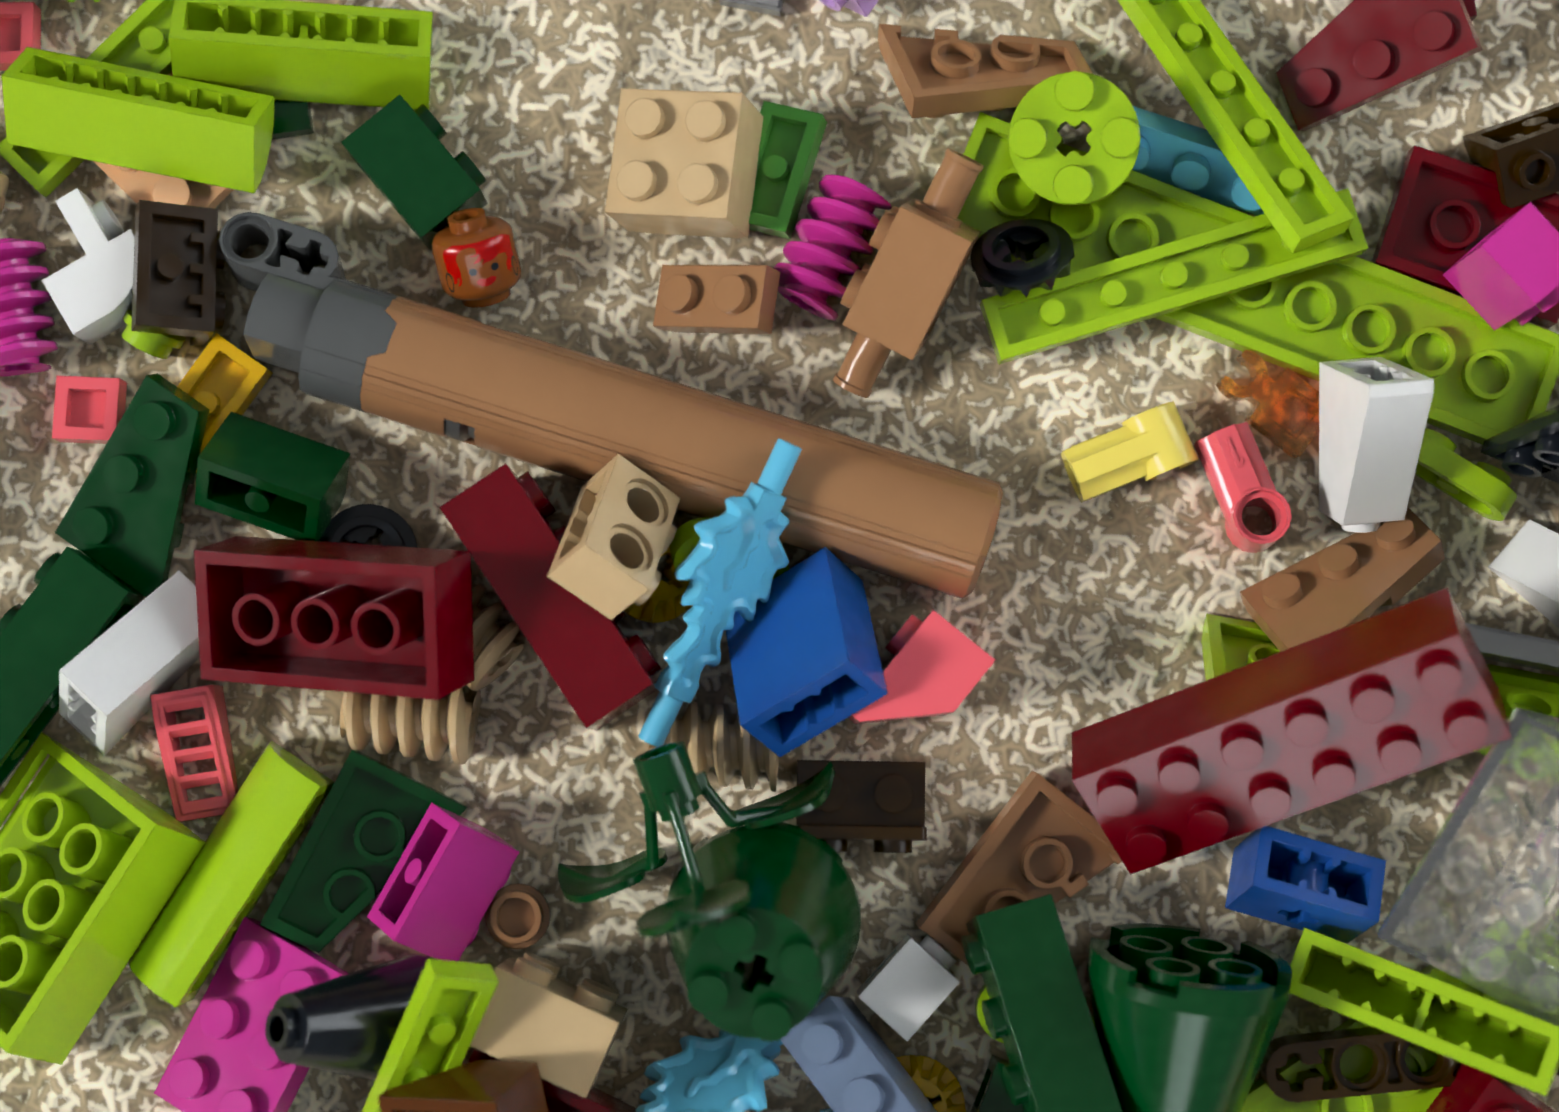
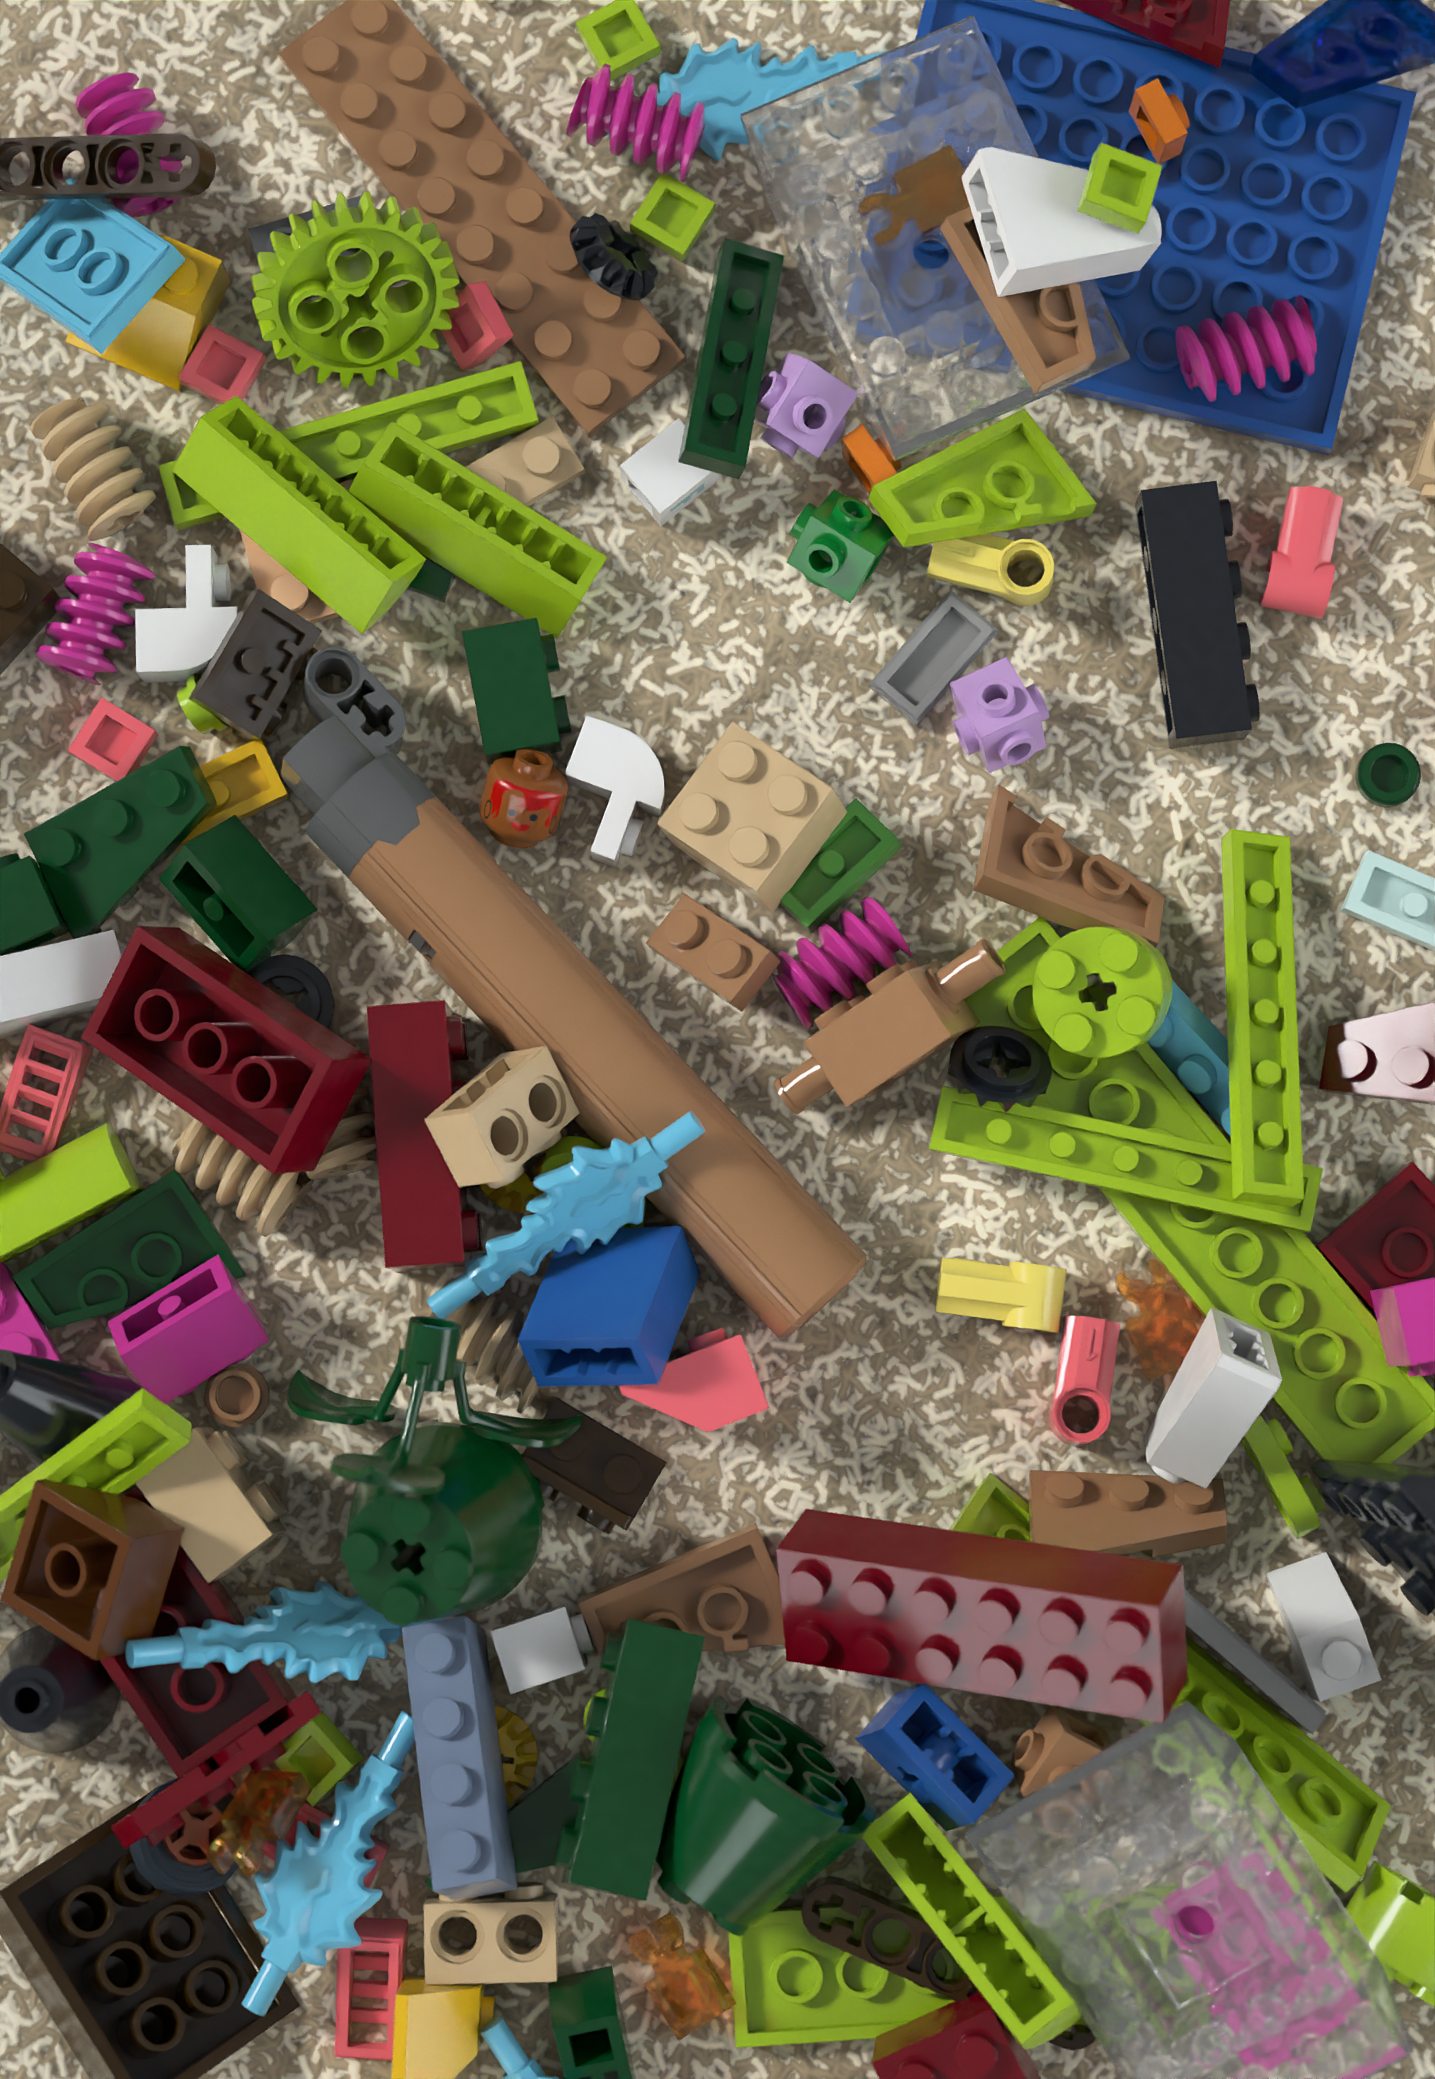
camera: 30 degrees right, 0 degrees up
(553, 187) = (626, 772): none -> white brick
(1407, 821) = (1055, 1747): none -> medium nougat brick

